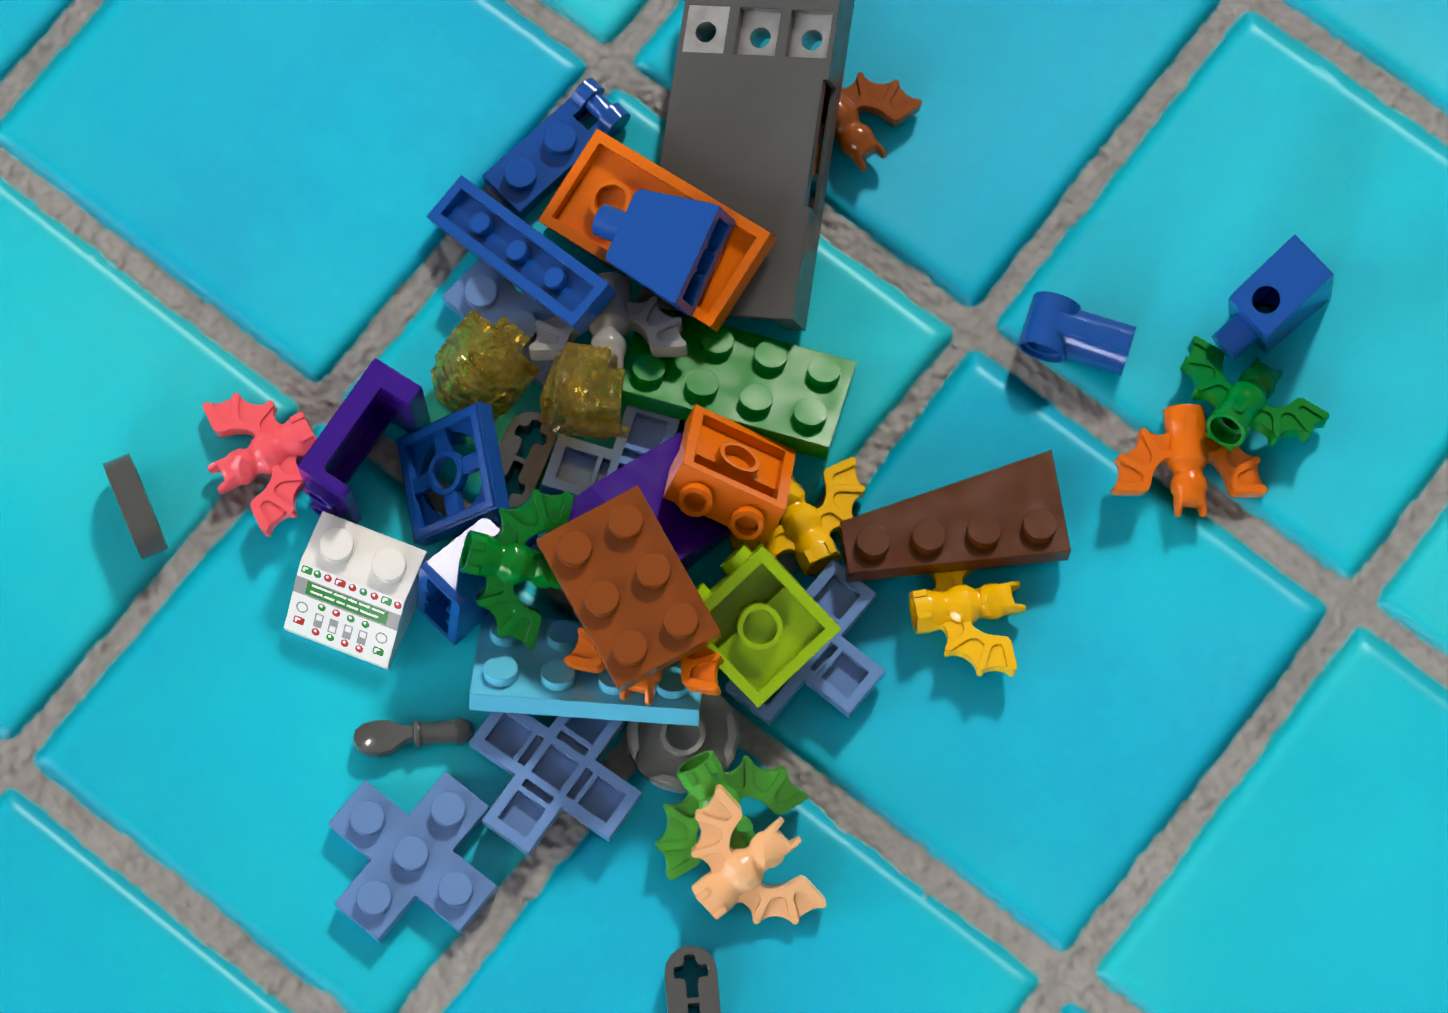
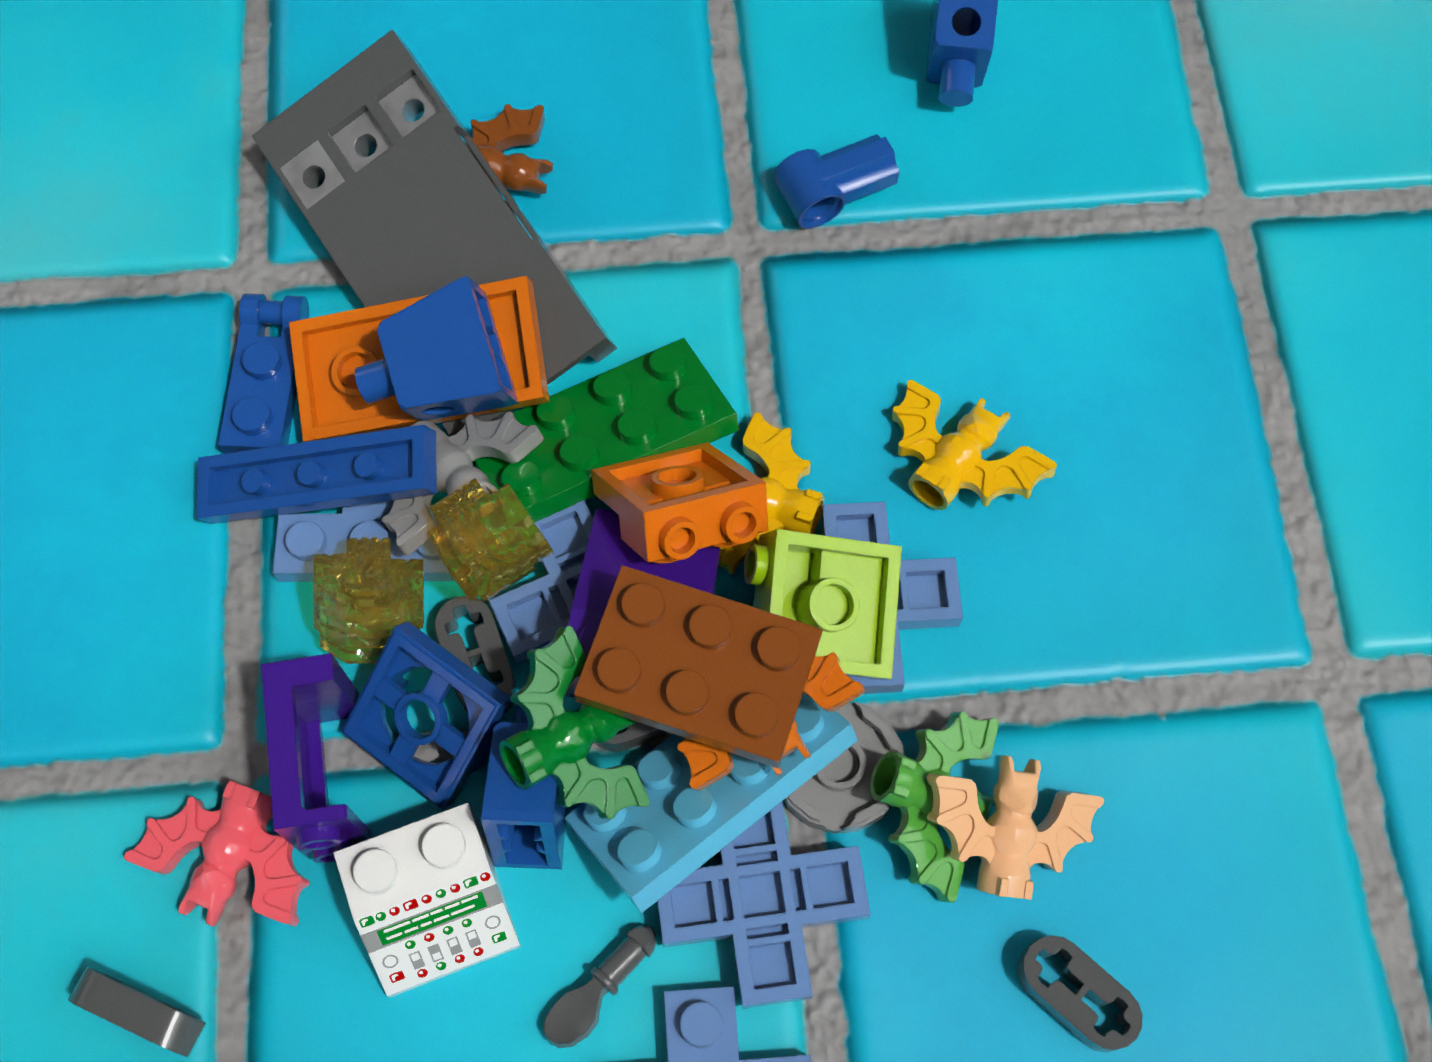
camera: 45 degrees left, 5 degrees down
(968, 525) = (901, 387): reddish brown wing -> none
(1186, 454) = (1007, 197): orange animal -> none
(1243, 404) = (1009, 123): green animal -> none

